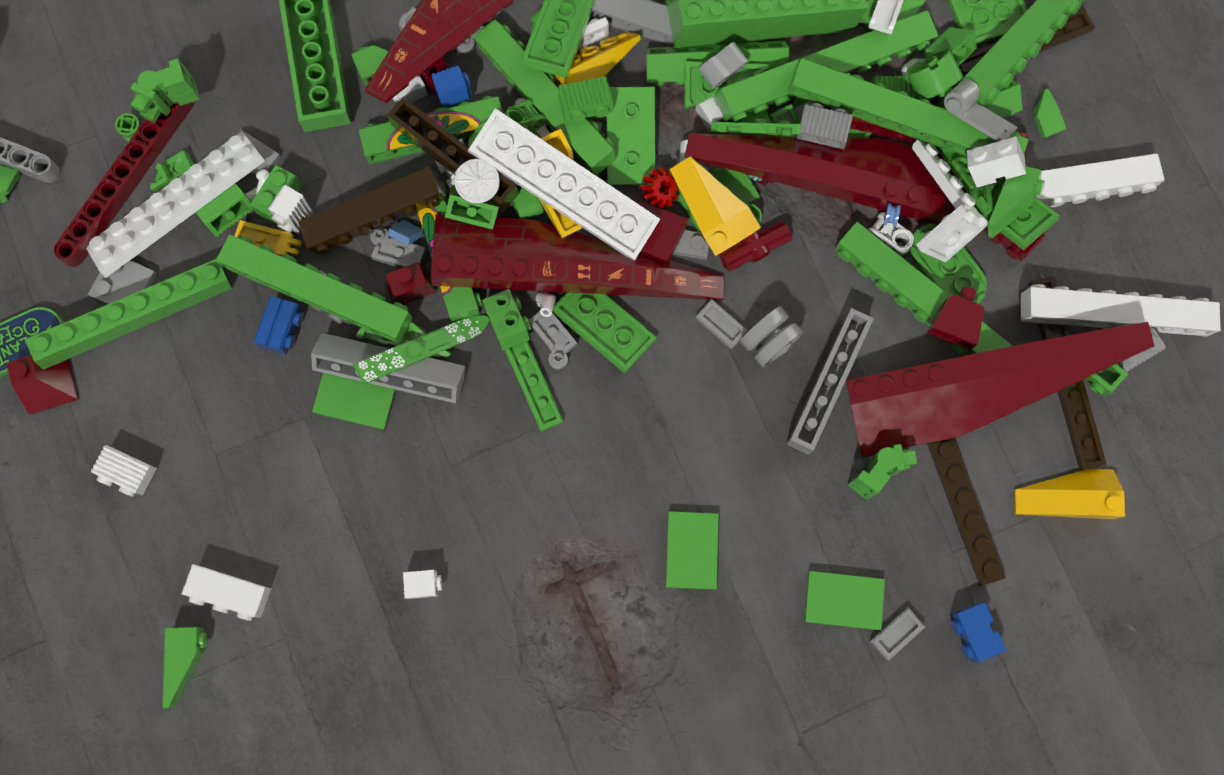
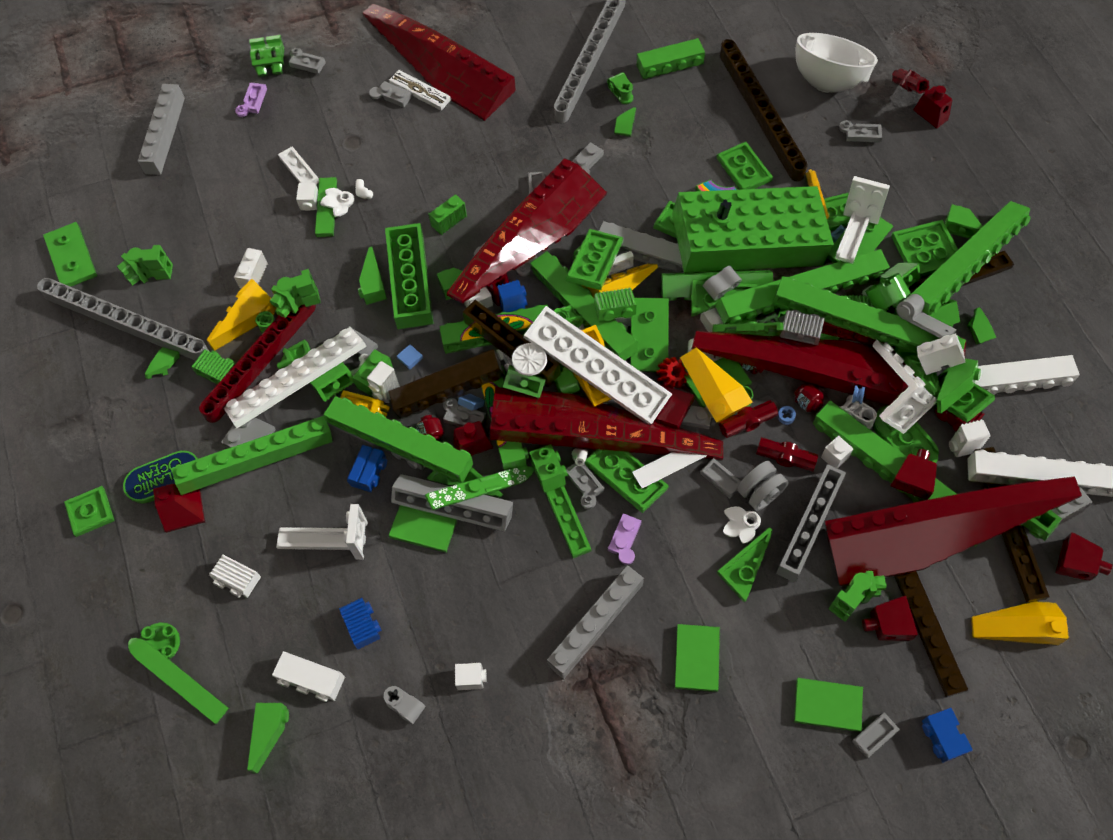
camera: 10 degrees right, 15 degrees down
(38, 556) = (162, 637): none -> bright green dish
(65, 191) = (212, 366): none -> bright green brick
(65, 600) = (177, 679): none -> bright green piece
(96, 120) = (241, 316): none -> yellow wedge
(101, 51) = (251, 267): none -> white brick
(262, 417) = (328, 538): none -> white bracket
(264, 63) = (370, 280): none -> bright green slope
(284, 523) = (360, 623): none -> blue brick
(323, 170) = (409, 357): none -> medium blue tile
(347, 624) = (406, 706): none -> light grey piece
(355, 270) = (431, 426): none -> dark red head
(570, 512) = (595, 622): none -> light grey brick
(603, 406) = (624, 538): none -> lavender hinge
(651, 314) = (663, 467): none -> white sticker
(742, 385) = (738, 524): none -> white plate
(746, 441) = (742, 569): none -> bright green wing
(801, 232) = (786, 409): none -> medium blue bush
(802, 292) = (787, 454): none -> dark red piece
(831, 217) = (809, 397): none -> dark red head
(863, 289) = (837, 452): none -> white brick
(921, 499) = (892, 621): none -> dark red torso
(1024, 268) = (969, 437): none -> white brick
(1147, 415) = (1081, 558): none -> dark red torso

